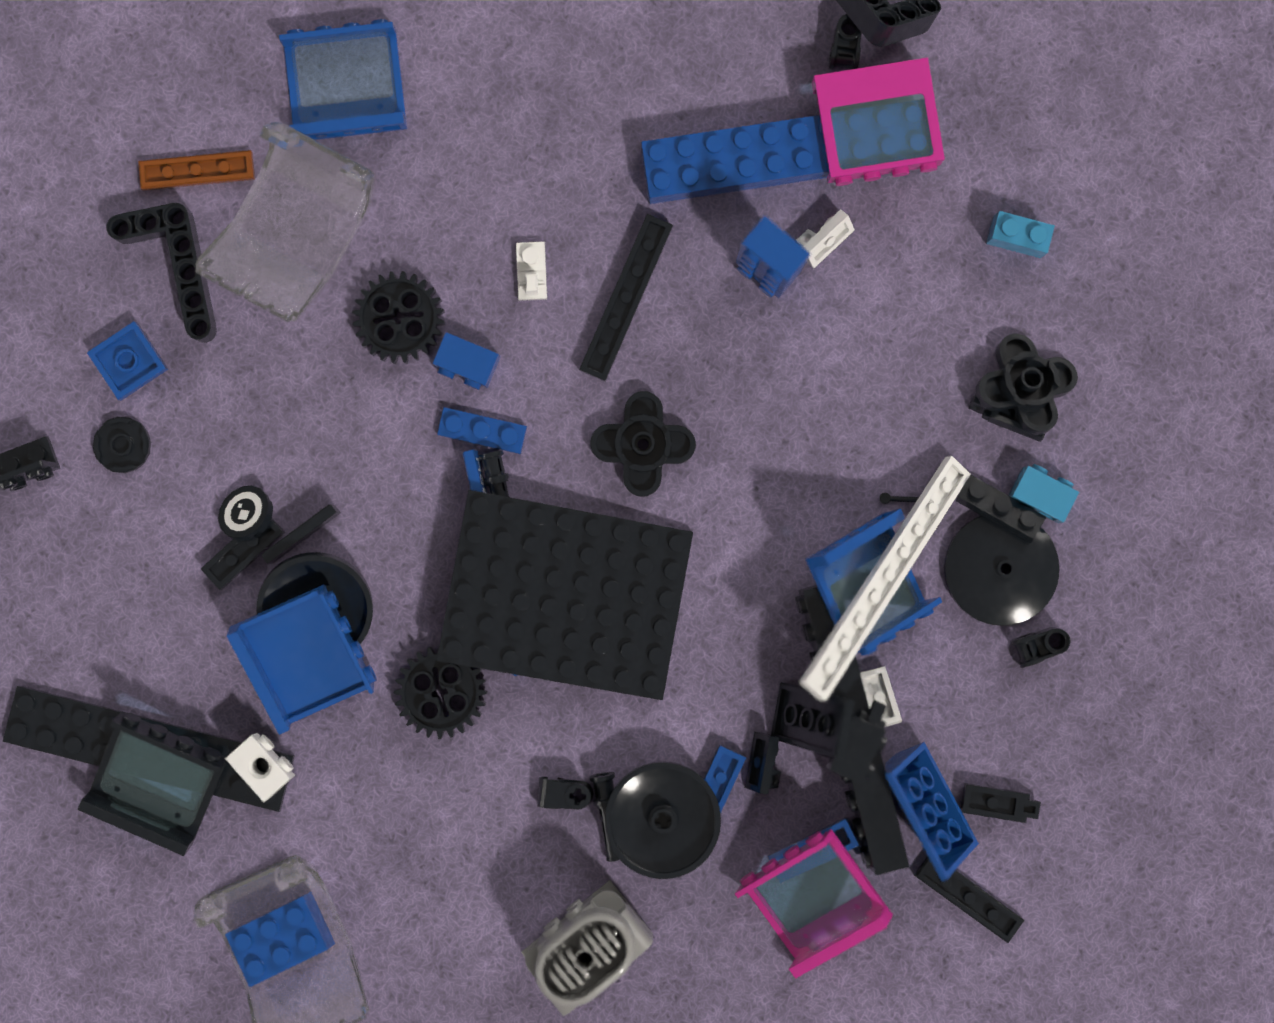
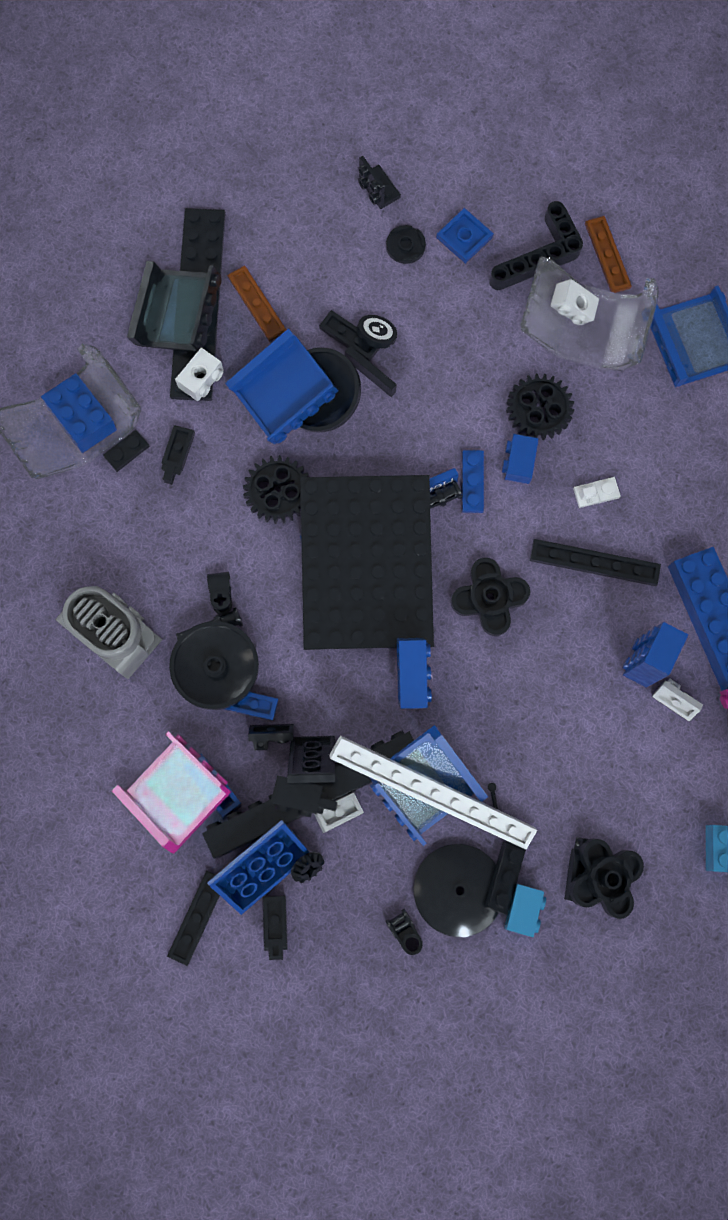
camera: 75 degrees right, 10 degrees down
(166, 668) = (256, 303): none -> dark orange tile
(264, 237) = (574, 302): none -> white brick
(342, 883) = (126, 450): none -> black plate
(360, 816) = (176, 452): none -> black hinge
(726, 567) = (413, 673): none -> blue brick
(938, 750) = (307, 867): none -> black gear

